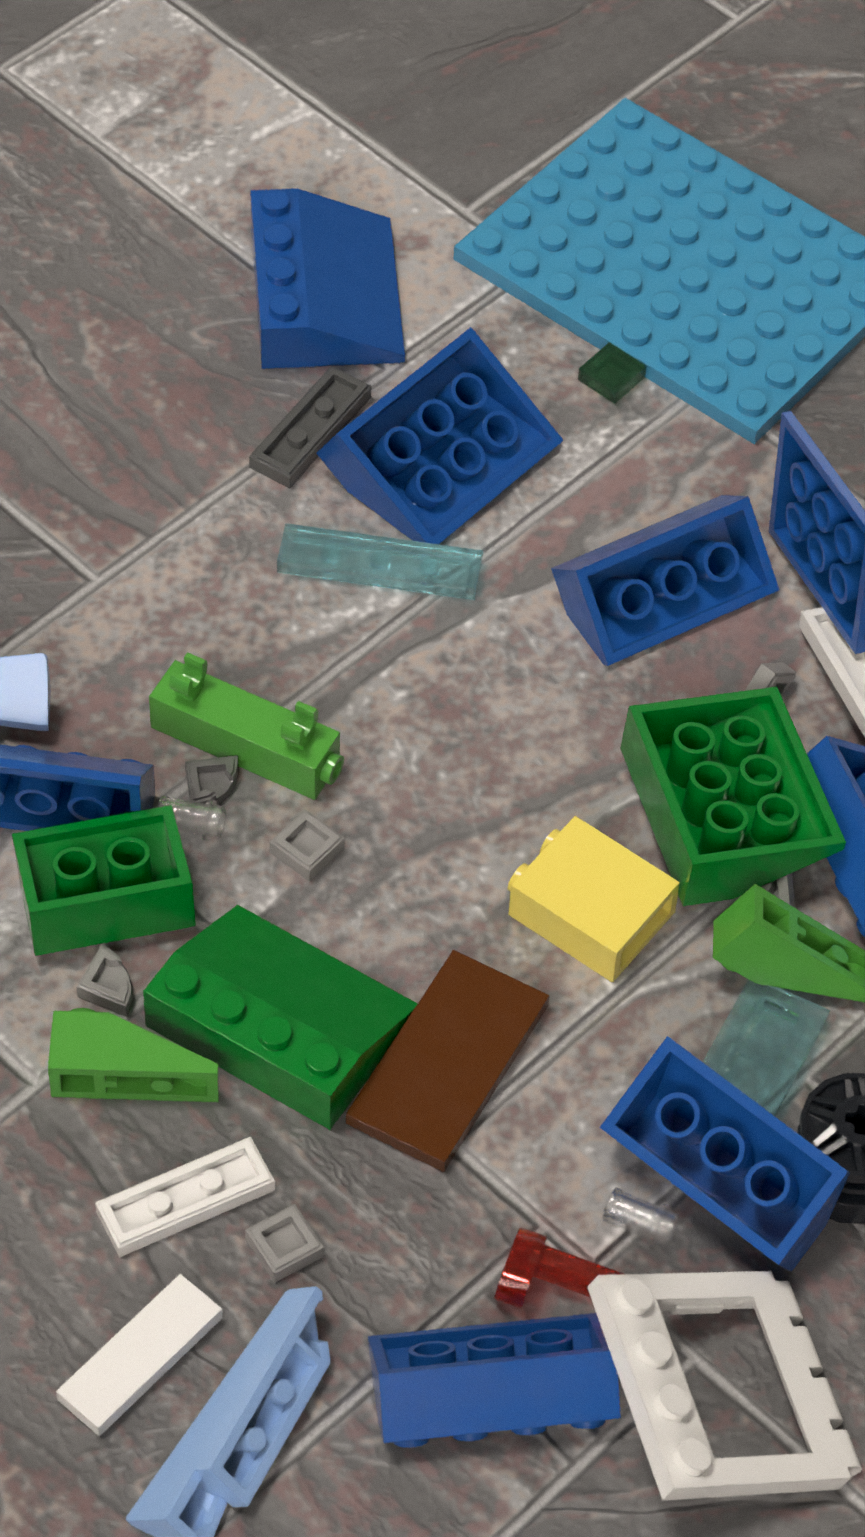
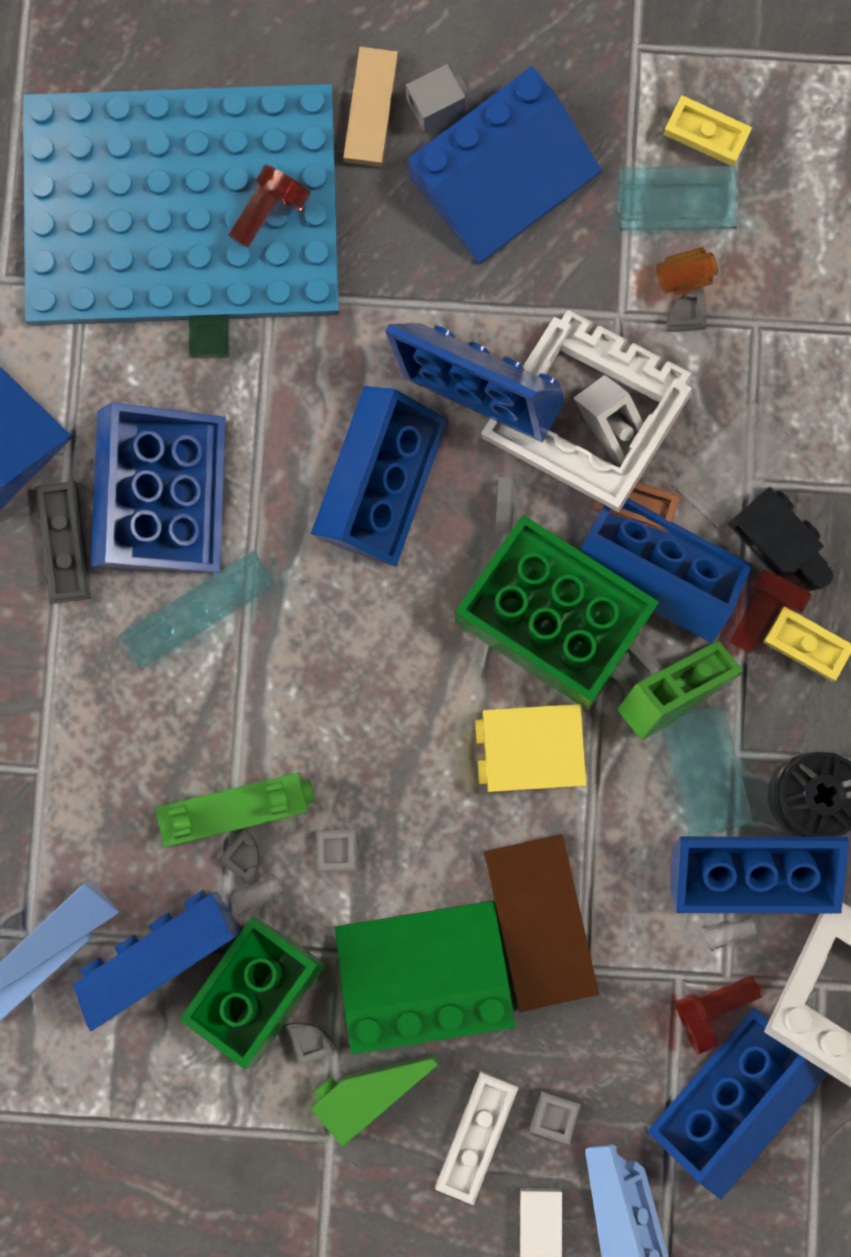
camera: 35 degrees left, 30 degrees up
(788, 290) = (272, 187): none -> clear red piece

